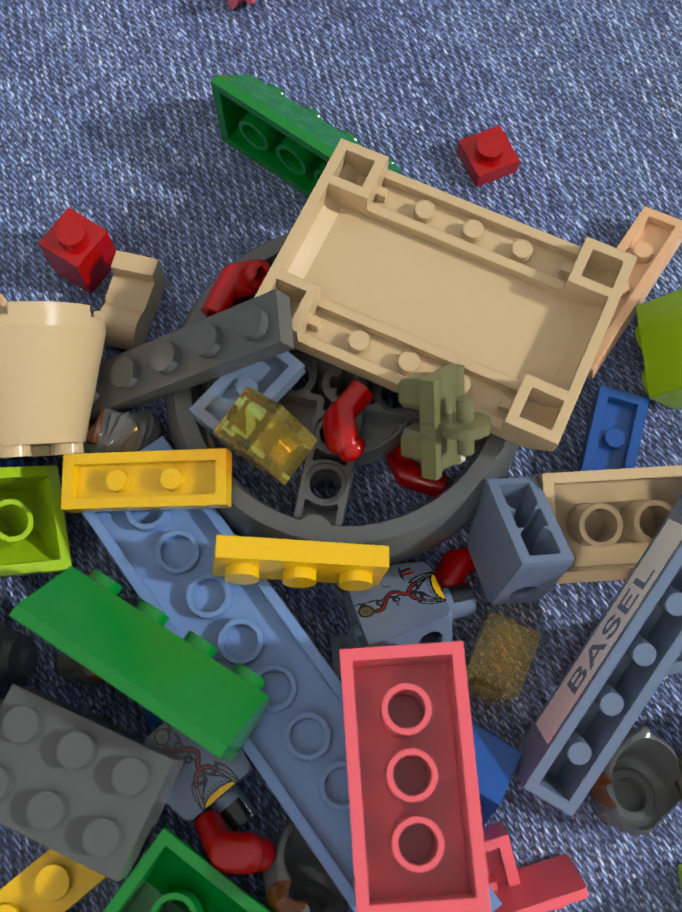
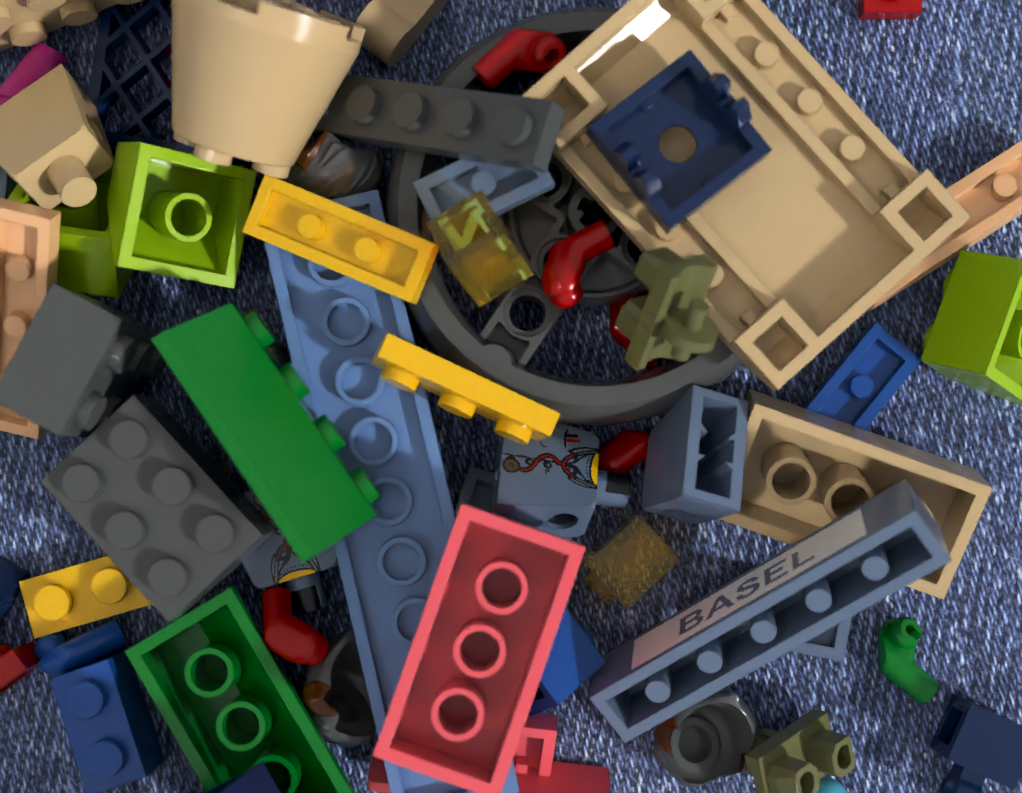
camera: 25 degrees right, 15 degrees up
(395, 259) = (689, 99): none -> dark blue piece

